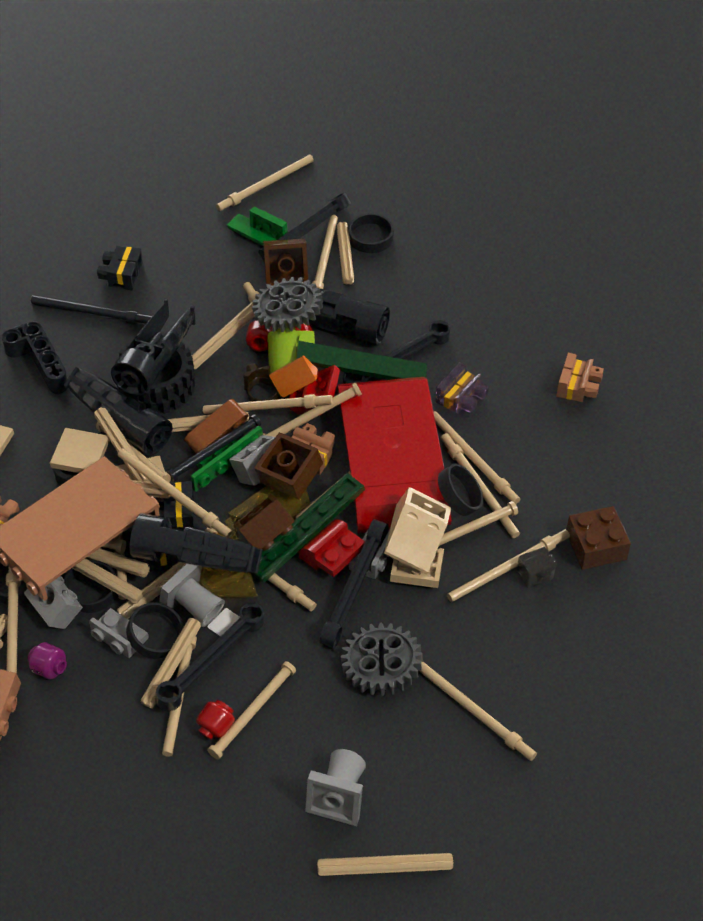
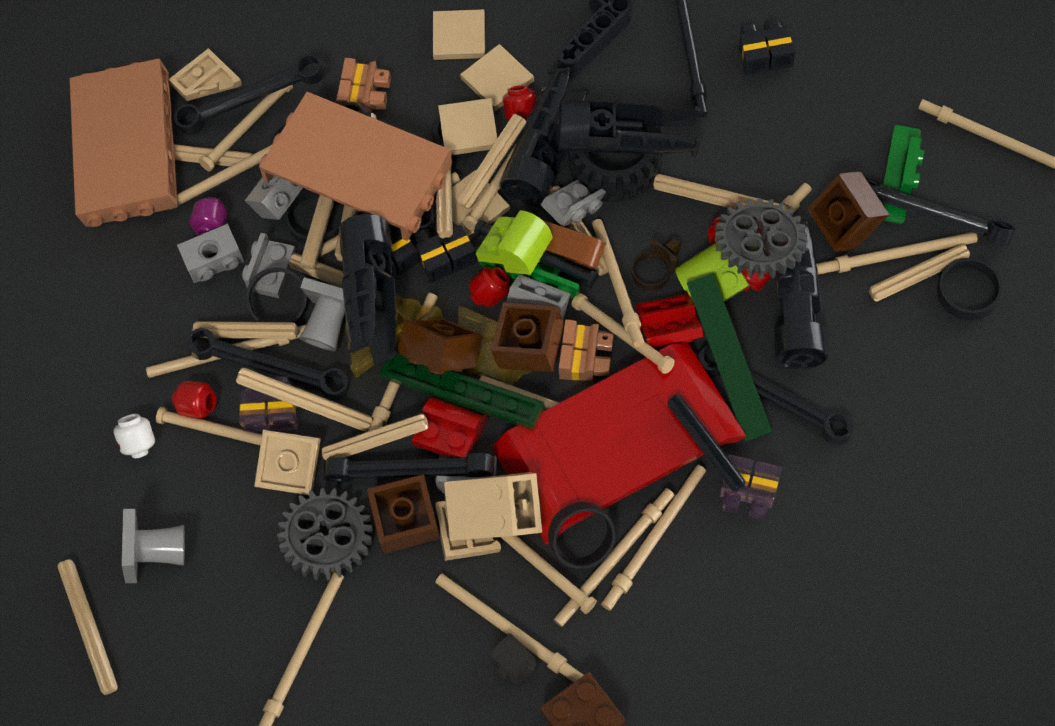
camera: 75 degrees right, 15 degrees up
(38, 429) = (495, 74): none -> tan tile
(78, 416) = (518, 101): none -> red head
(78, 657) = (199, 248): none -> light grey brick
(186, 412) = (572, 203): none -> light grey bracket
(205, 448) = (516, 243): none -> lime brick
(209, 519) = (422, 288): tan bar -> none
(223, 622) = (323, 359): white sticker -> none
(225, 485) = (489, 286): none -> red head
(227, 772) = (134, 435): none -> white head
(252, 665) = (261, 411): none -> hips
(261, 632) = (304, 399): none -> tan axle
(294, 376) = (670, 293): orange slope -> none
(307, 667) = (287, 462): none -> tan tile
(318, 597) = (376, 437): none -> tan axle
(391, 596) = (403, 514): none -> reddish brown brick
(426, 389) = (706, 443): none -> black axle
(575, 379) = (834, 617): nougat hips -> none

